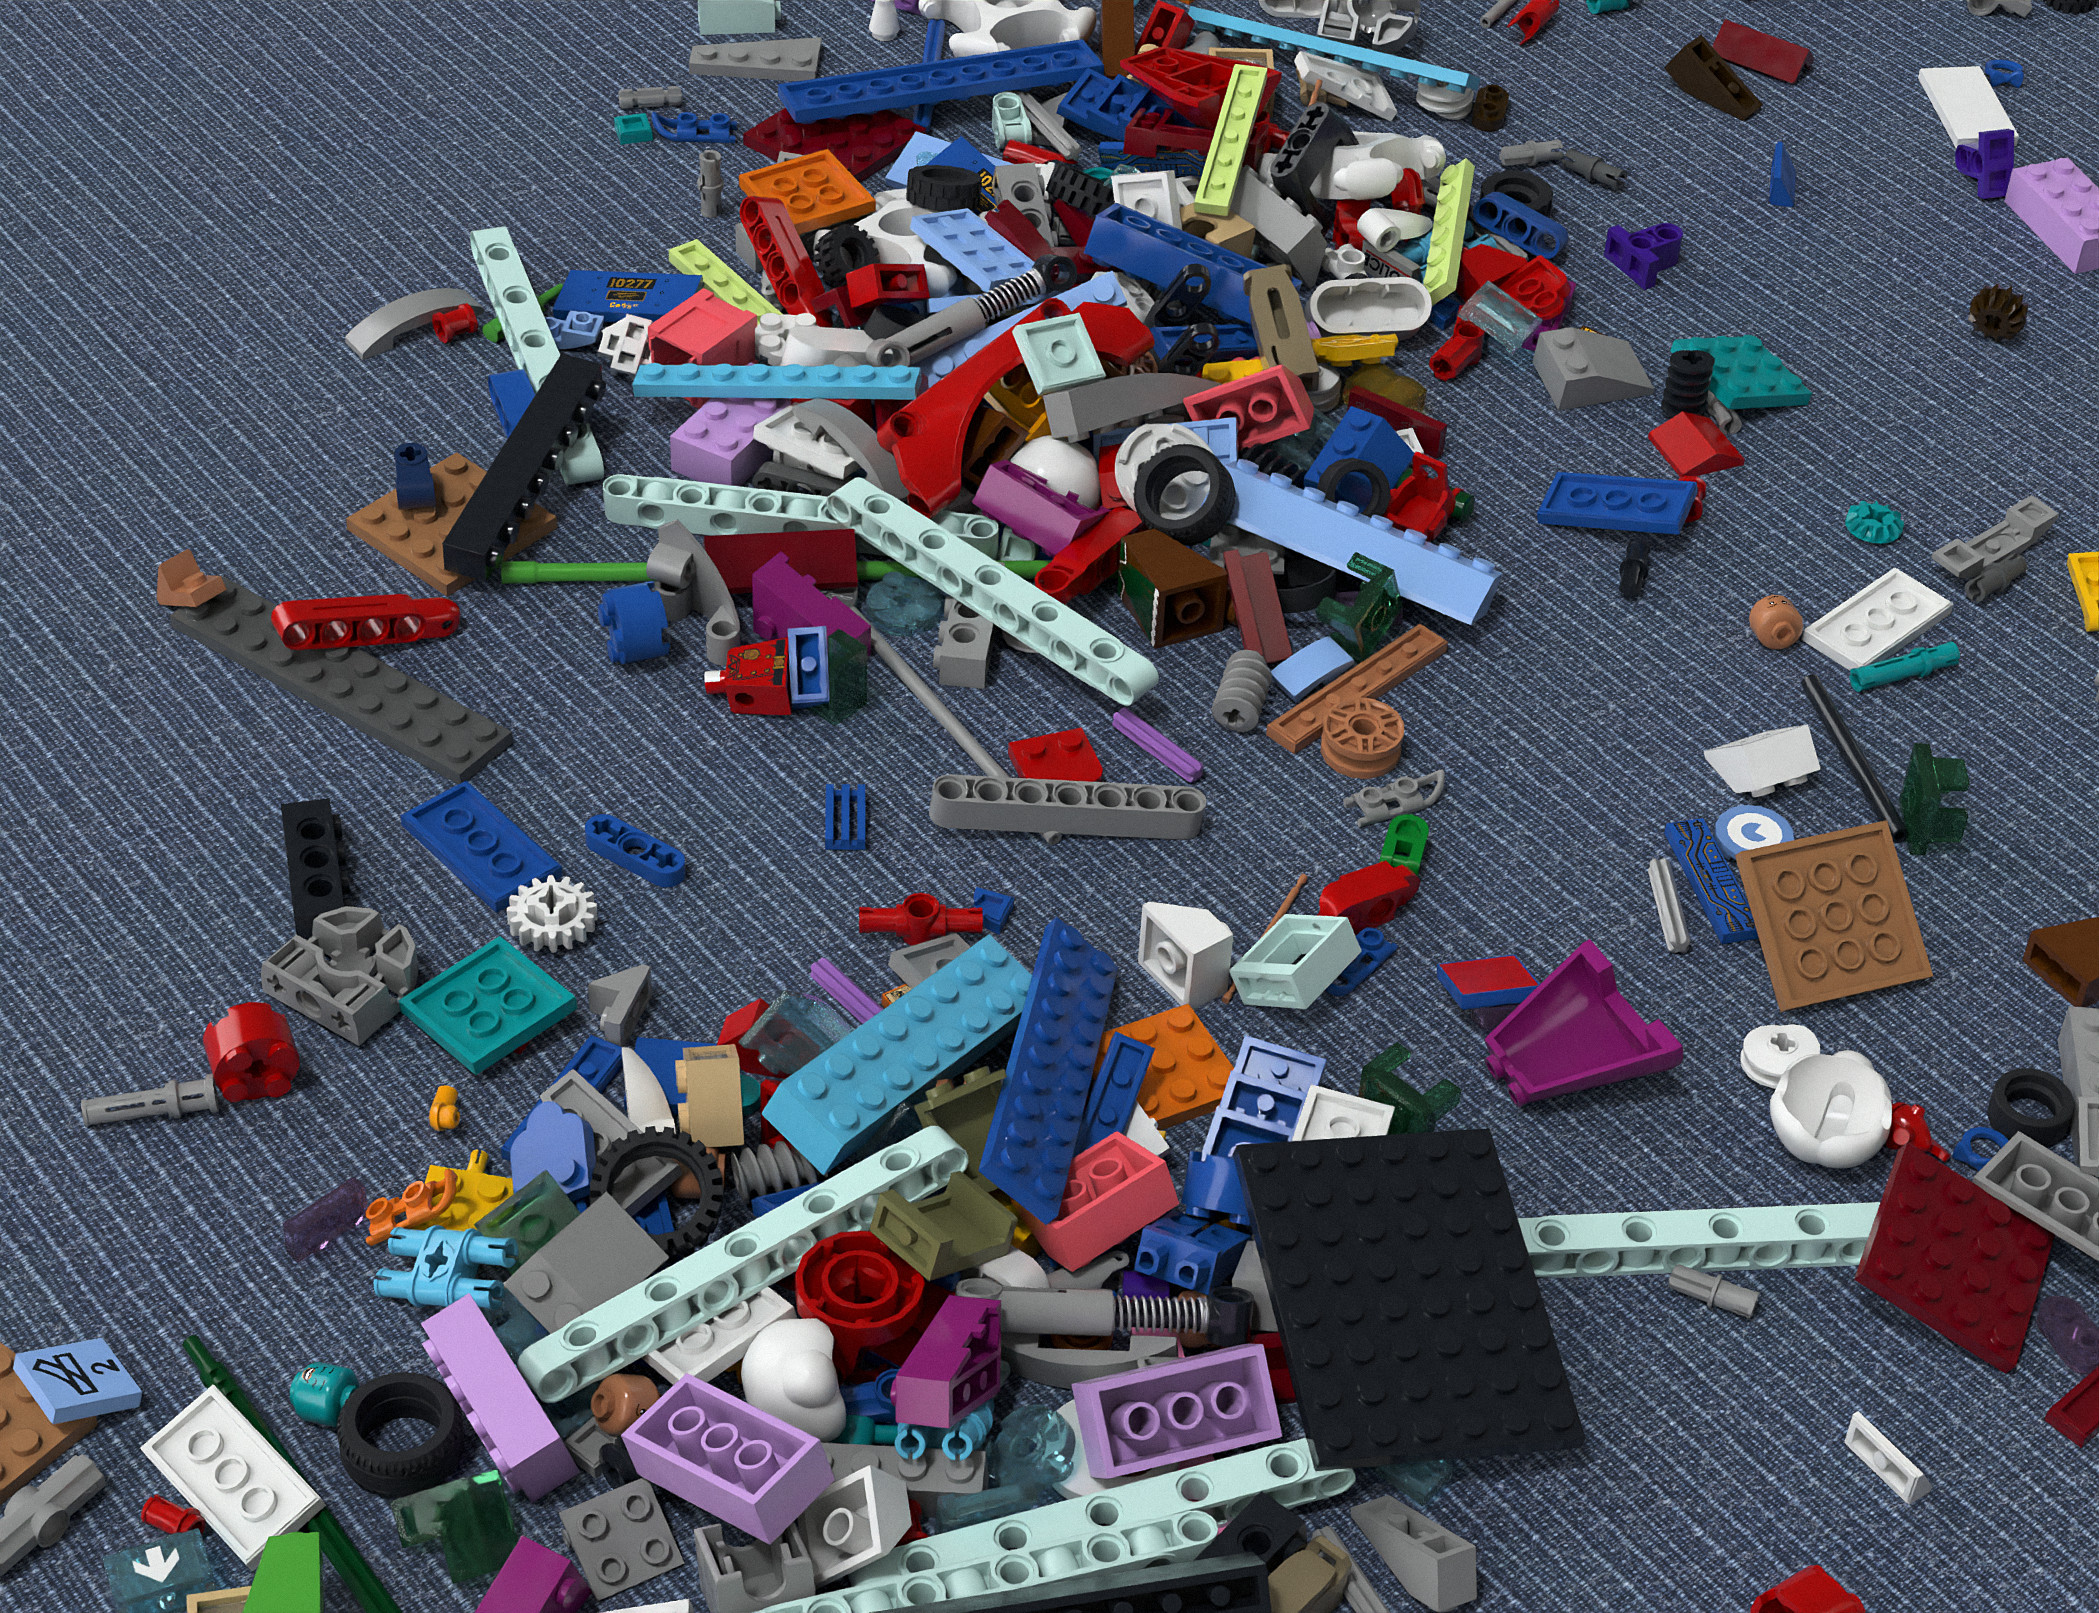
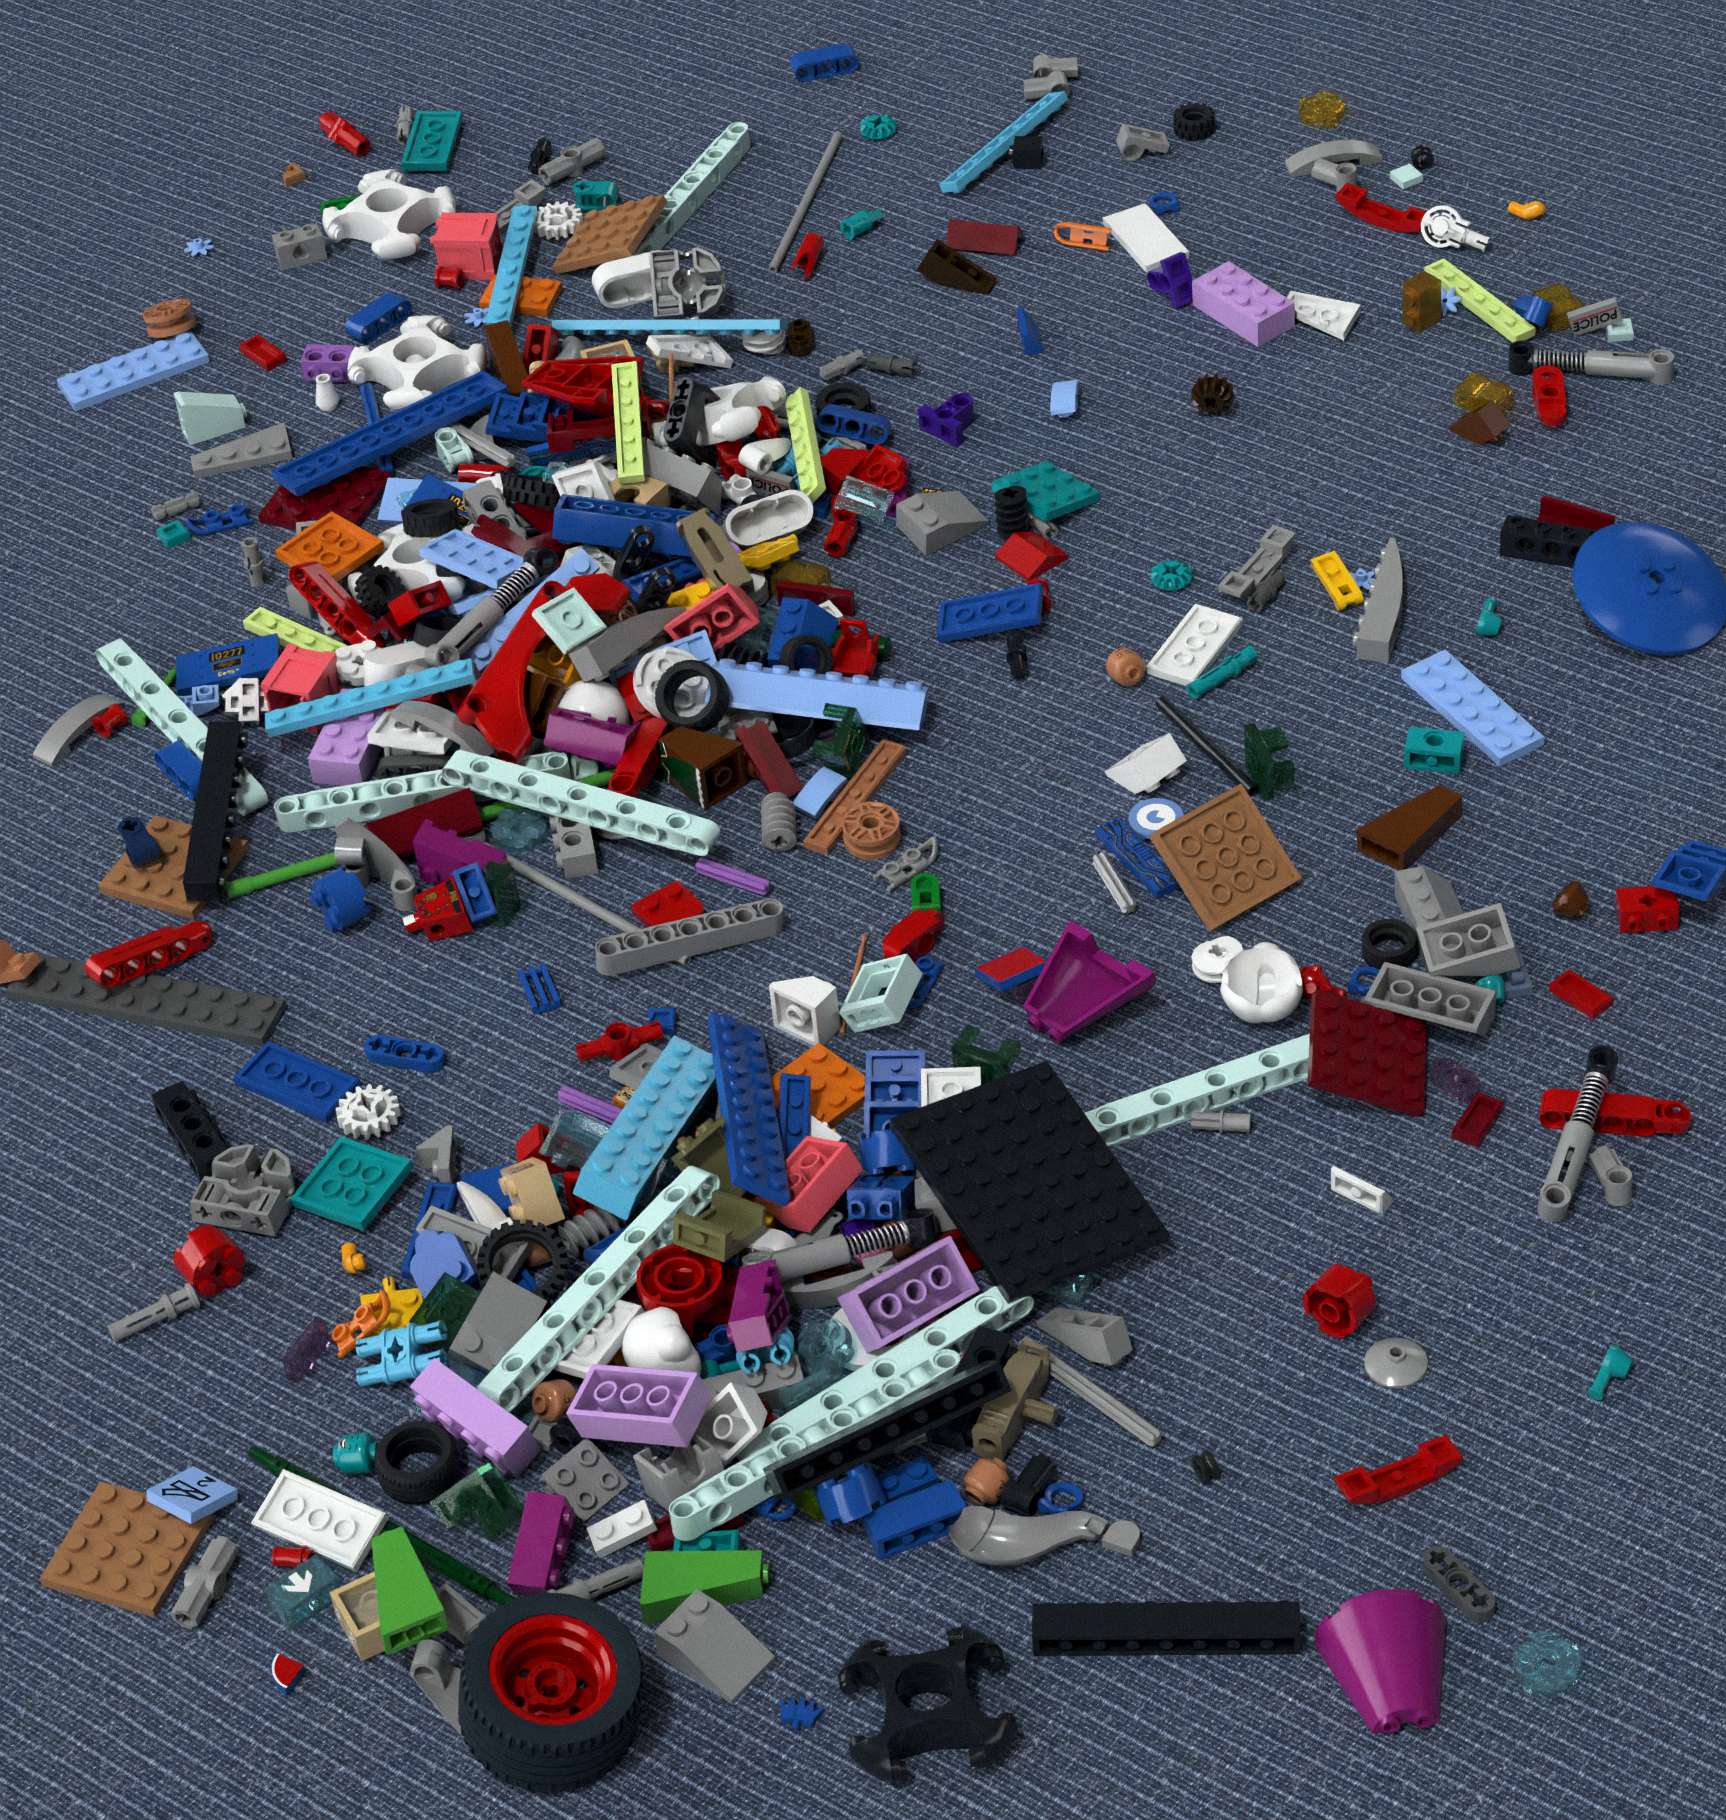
camera: 10 degrees left, 0 degrees up
(1802, 267) = (1064, 398): none -> light blue slope
(1883, 78) = (1078, 233): none -> orange piece

